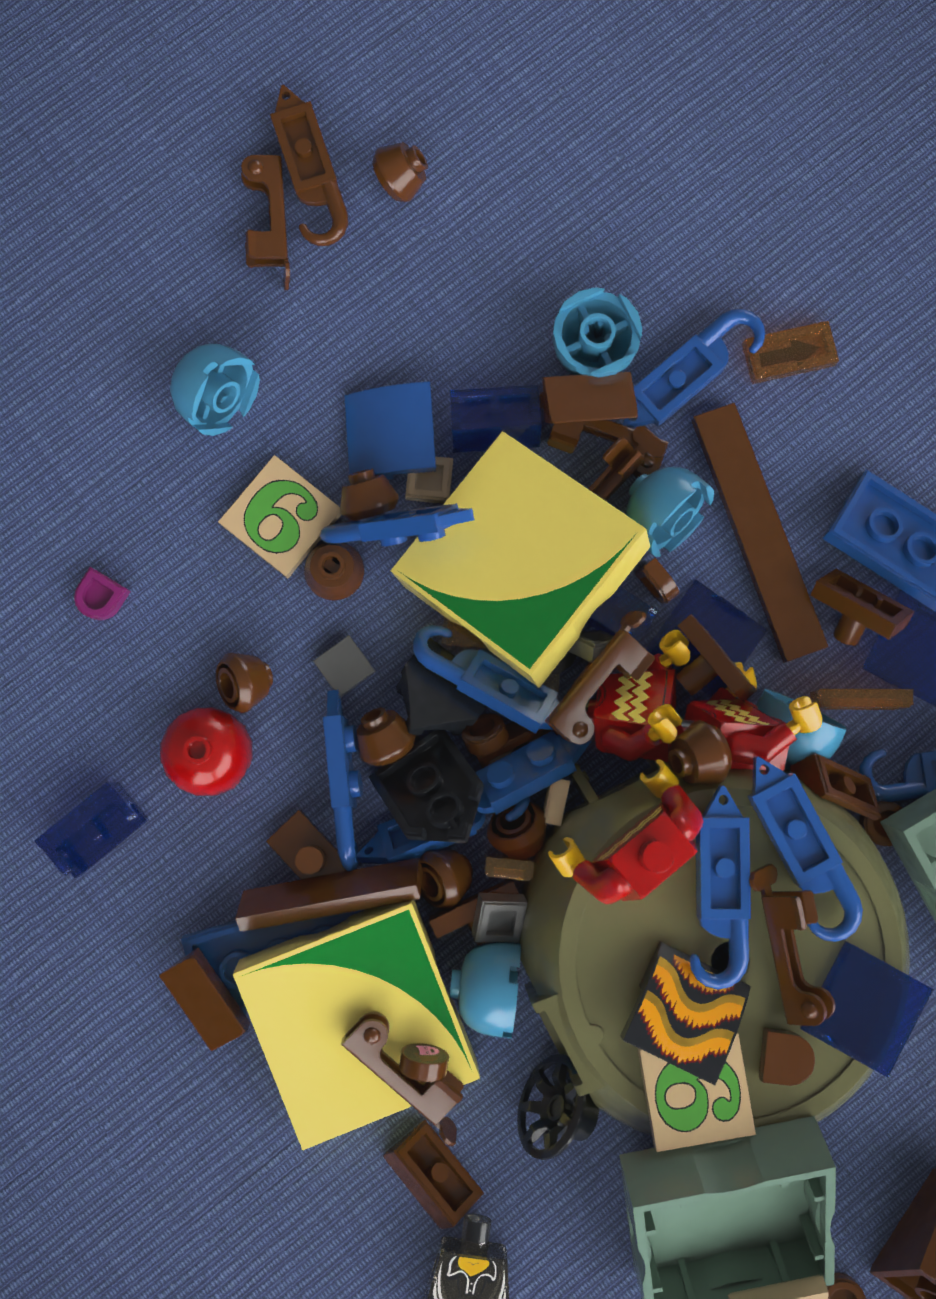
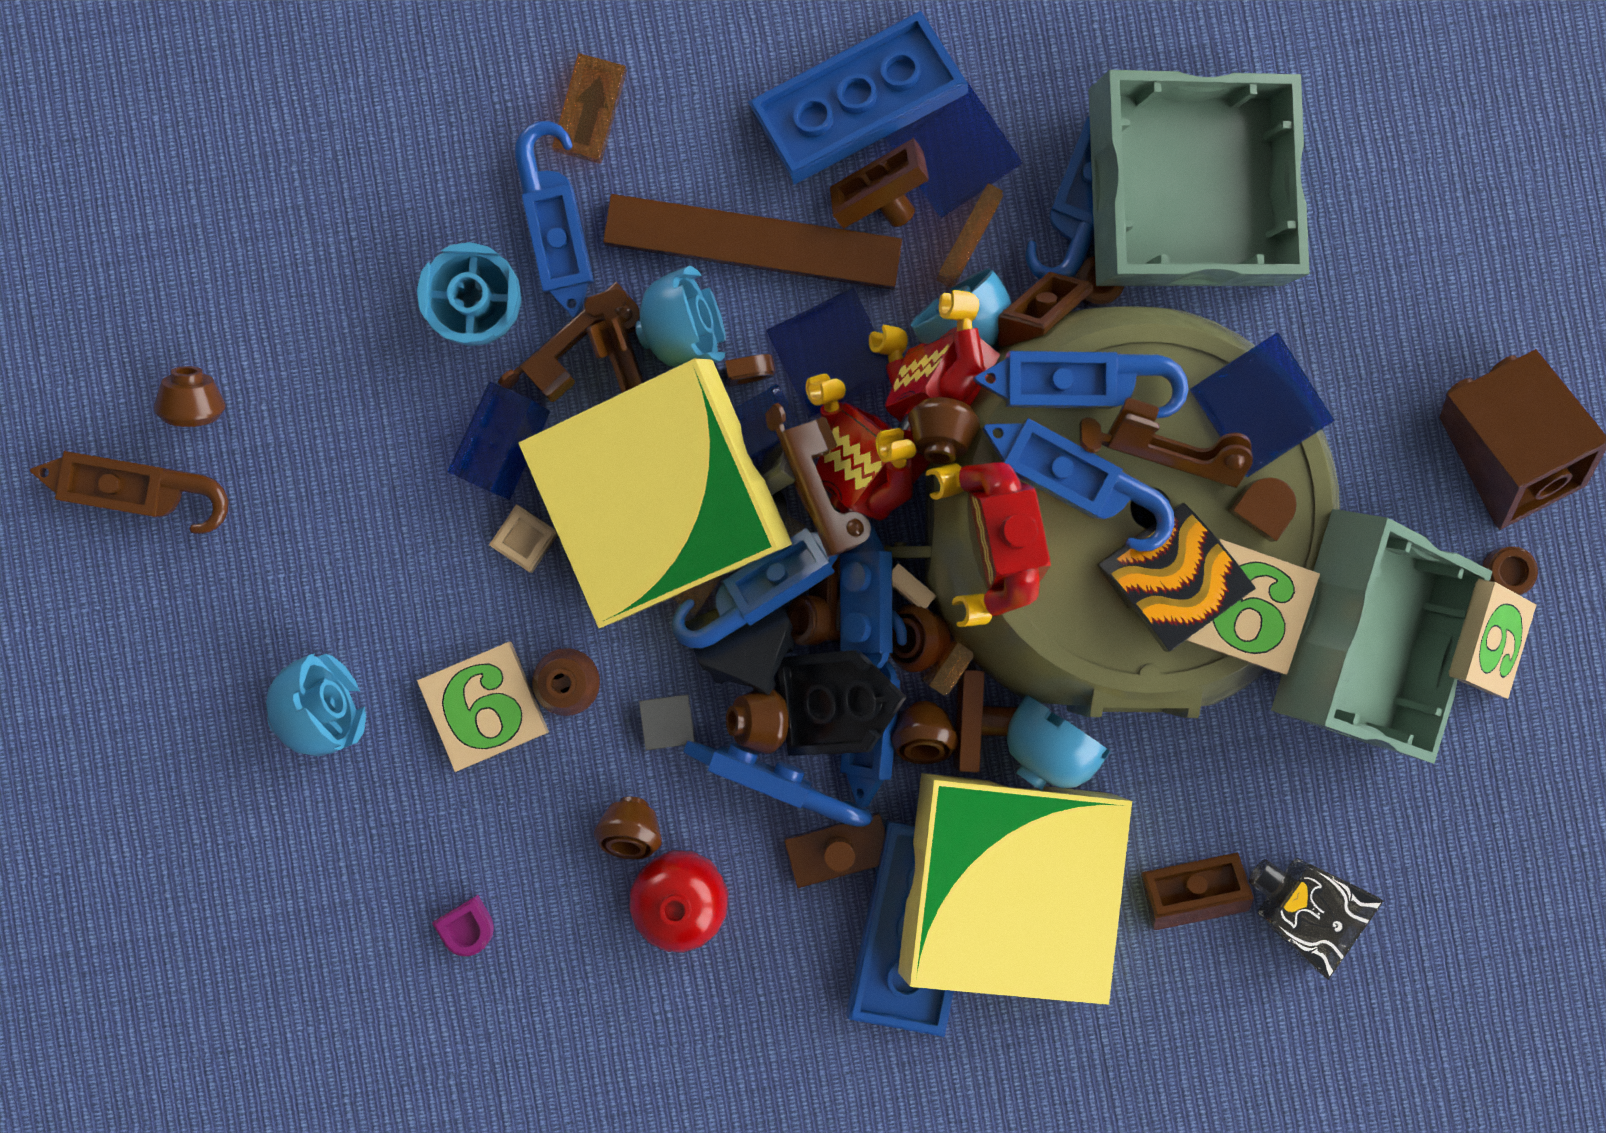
camera: 60 degrees left, 5 degrees up
(92, 829) = (696, 1051): clear blue hinge -> none
(205, 1000) = (919, 1024): reddish brown slope -> none
(267, 247) = (197, 574): reddish brown piece -> none
(330, 894) = (883, 853): reddish brown tile -> none
(367, 495) = (509, 610): reddish brown cone -> none
(391, 430) = (455, 552): blue slope -> none
(395, 526) = (559, 597): blue plate -> none
(423, 1062) = (1089, 847): reddish brown tile -> none
(430, 1100) = (1127, 856): reddish brown piece -> none
(499, 917) = (992, 702): dark grey tile -> none
(560, 1110) = (1202, 742): black wheel -> none
(588, 398) = (531, 338): reddish brown slope -> none
(710, 663) = (858, 363): reddish brown tile -> none

